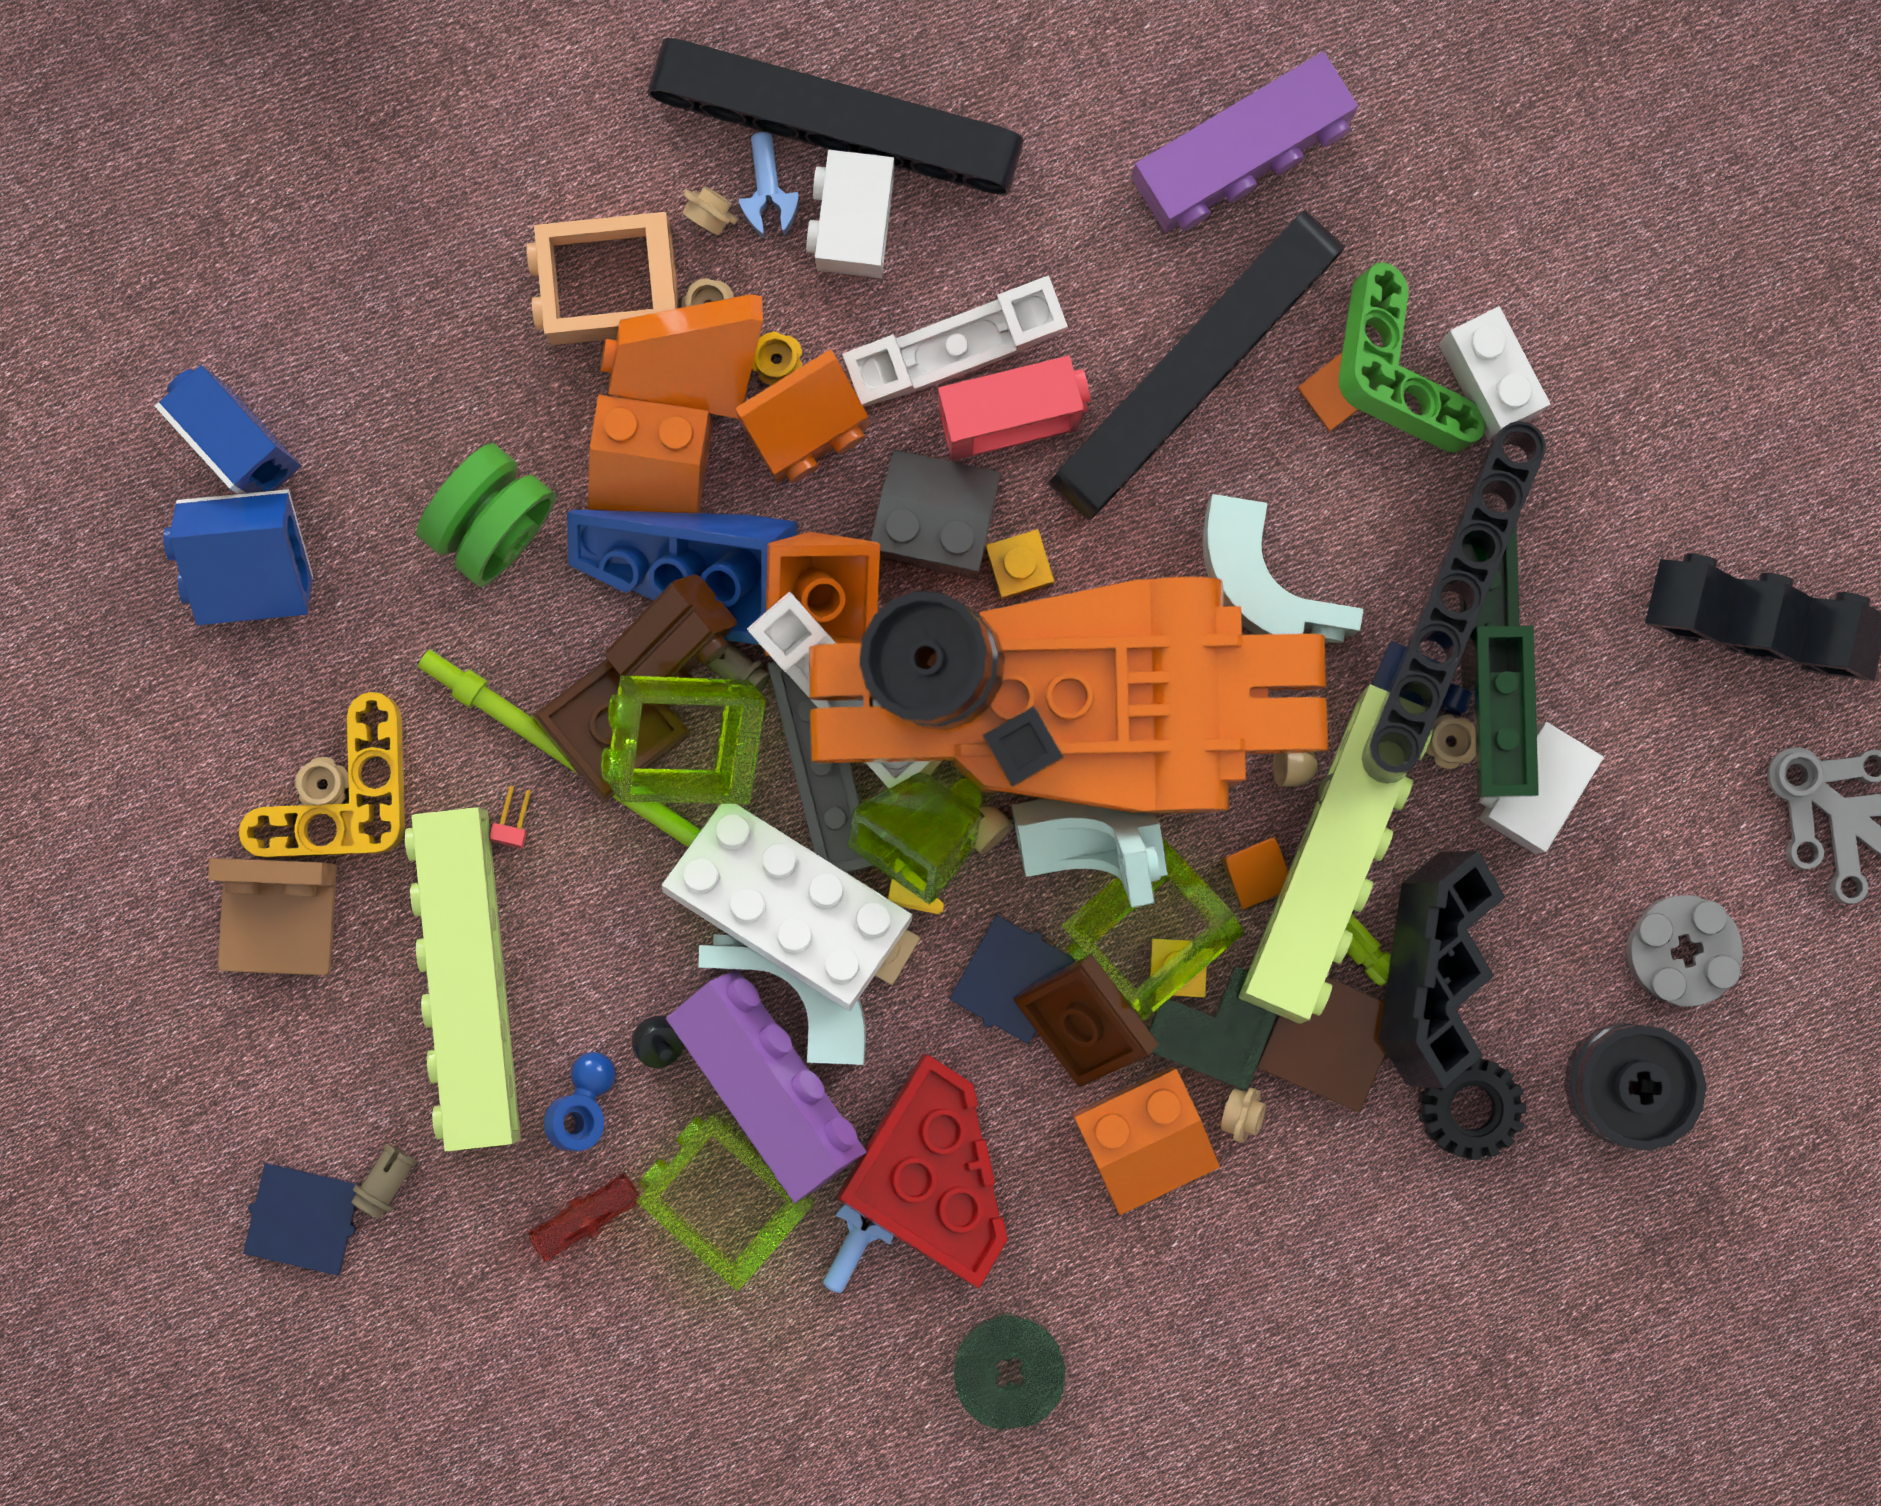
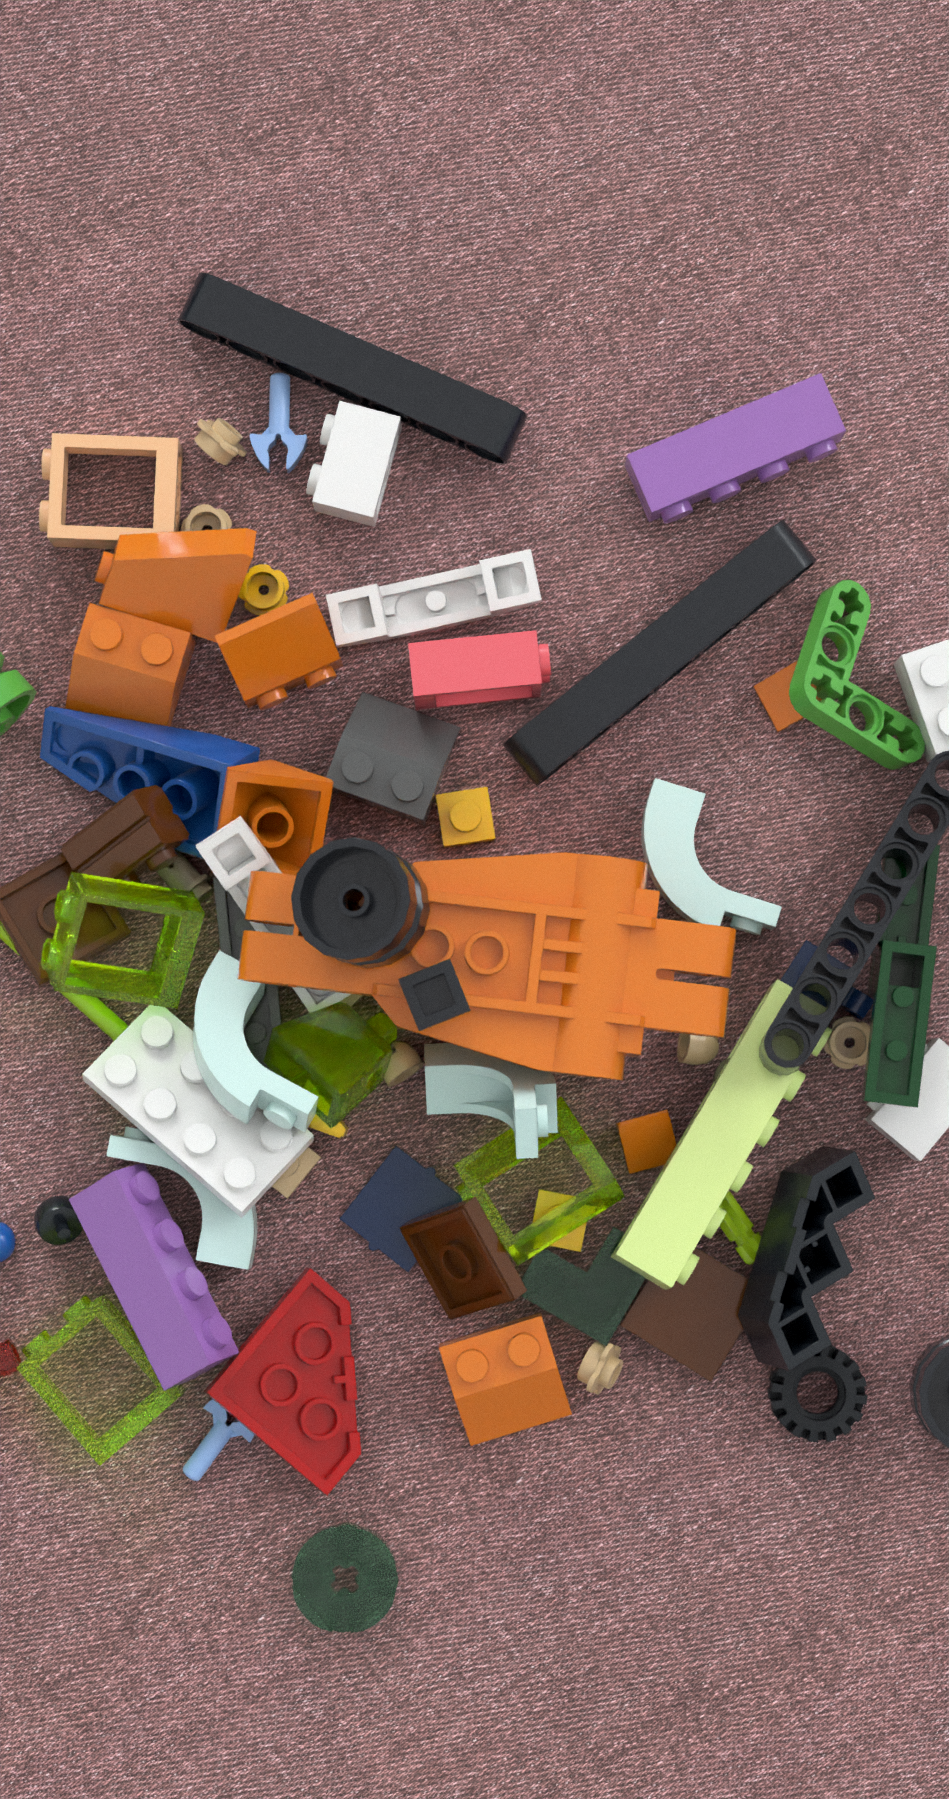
camera: 10 degrees right, 0 degrees up
(810, 848) = (225, 1059): none -> light aqua arch

